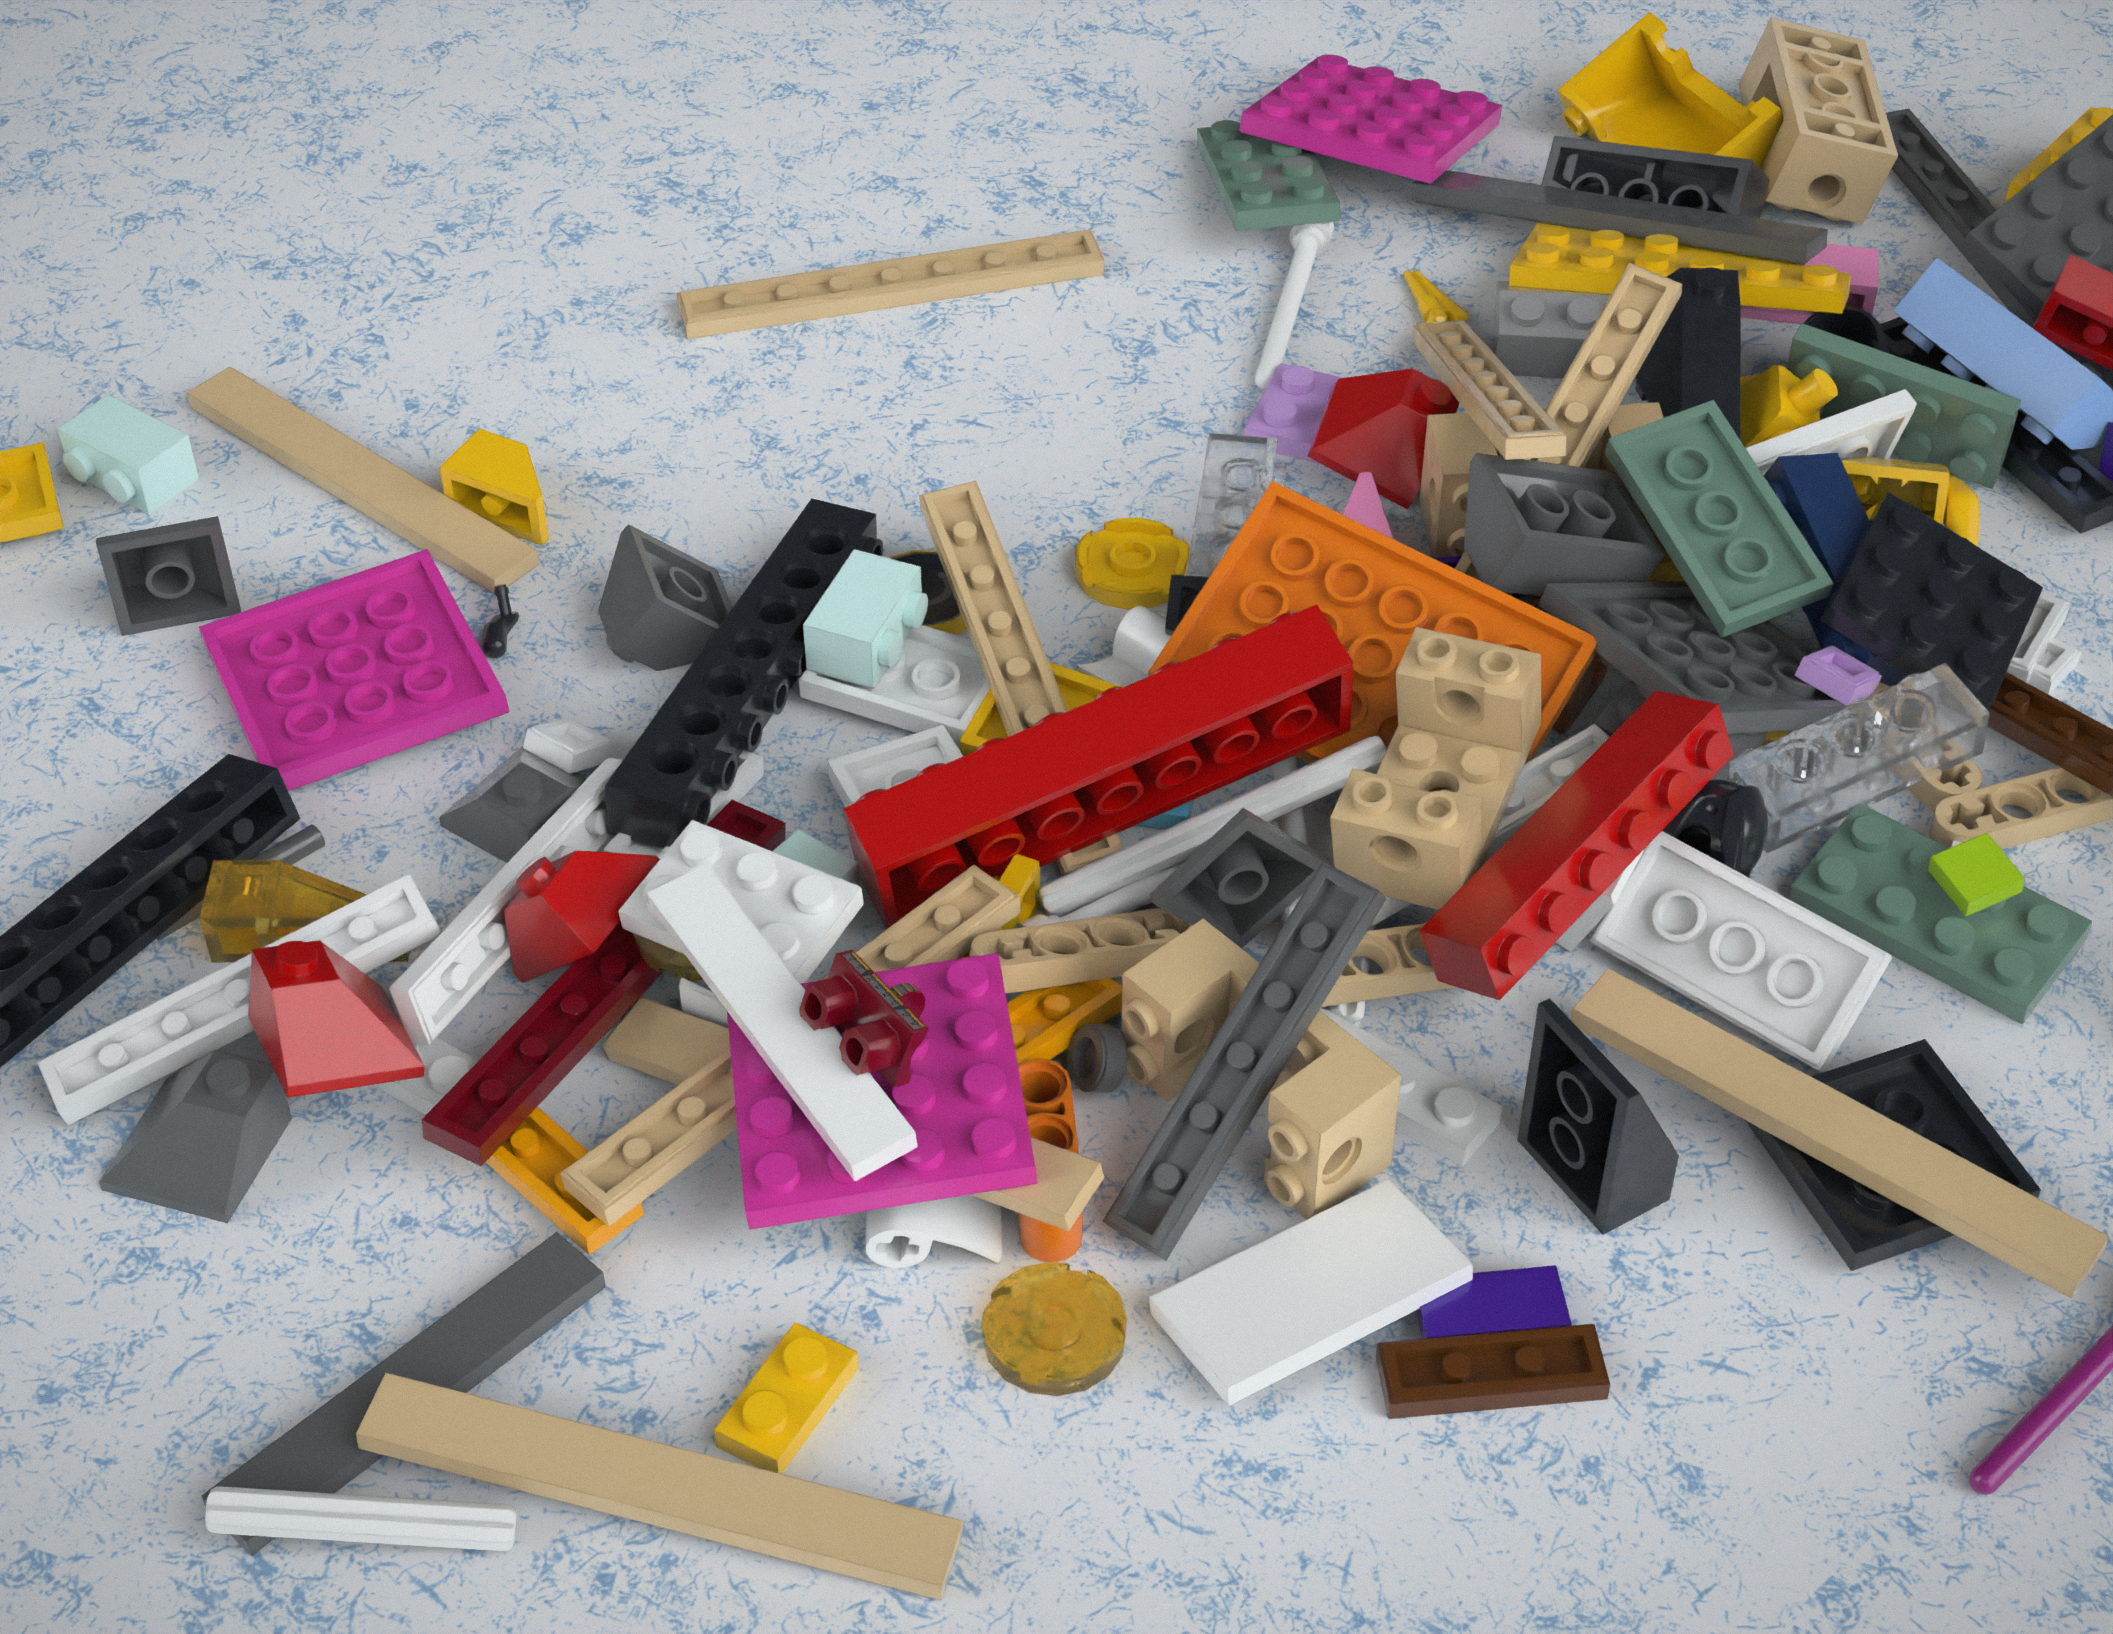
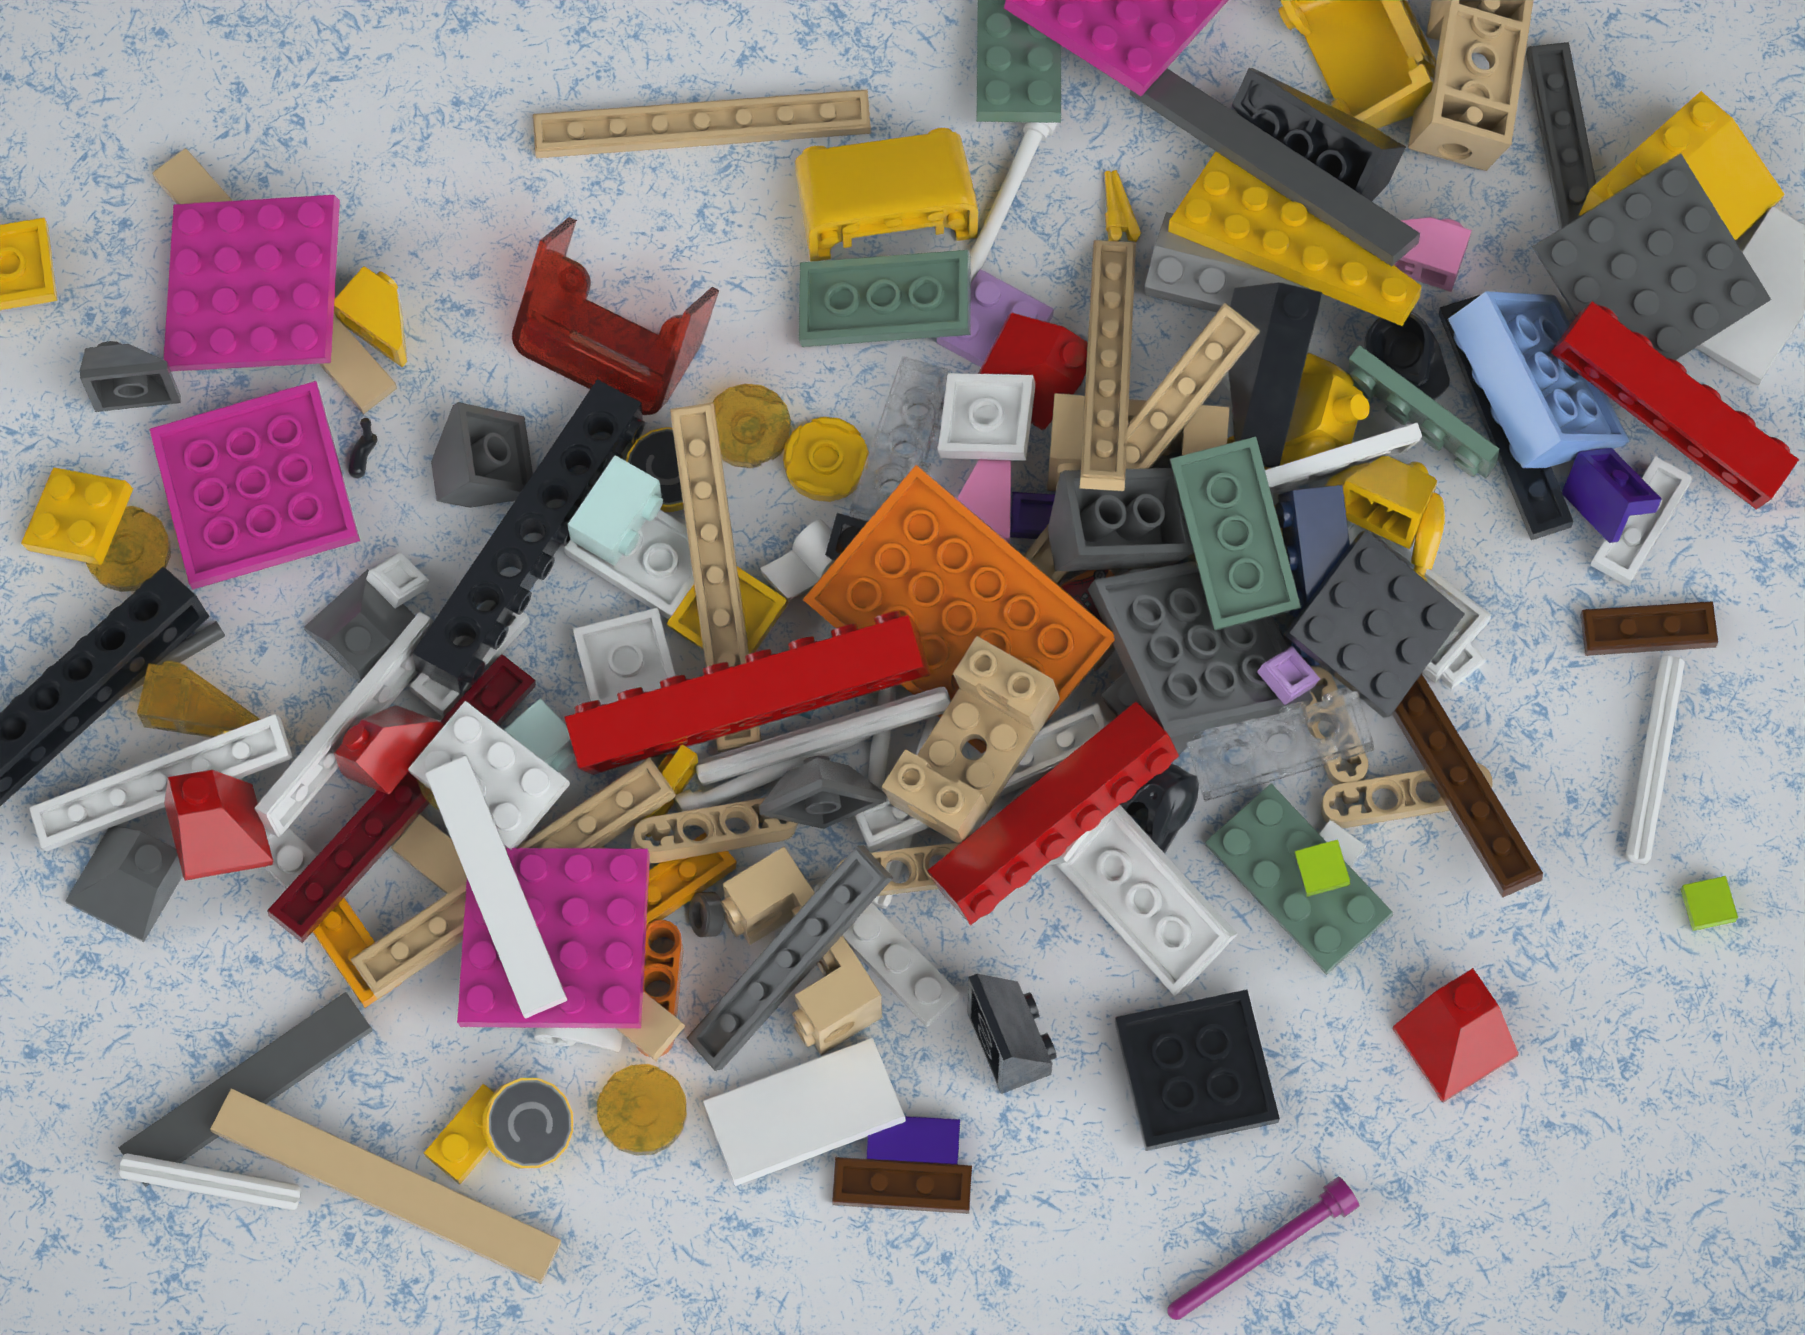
camera: 10 degrees right, 25 degrees up
(99, 729) = (77, 516): none -> yellow plate
(128, 454) = (105, 237): light aqua brick -> none
(165, 759) = (135, 553): none -> clear yellow tile
(331, 466) = (252, 283): none -> dark pink plate
(744, 475) = (591, 343): none -> clear red windscreen
(876, 1021) = (555, 903): dark red hips -> none
(877, 1360) = (527, 1123): none -> black tile
(1035, 538) = (751, 425): none -> clear yellow tile
(1085, 302) = (885, 189): none -> yellow windscreen
(1169, 393) = (885, 298): none -> sand green plate
(1344, 462) = (986, 416): none -> white plate
(1842, 1133) = (1160, 1054): tan tile -> none

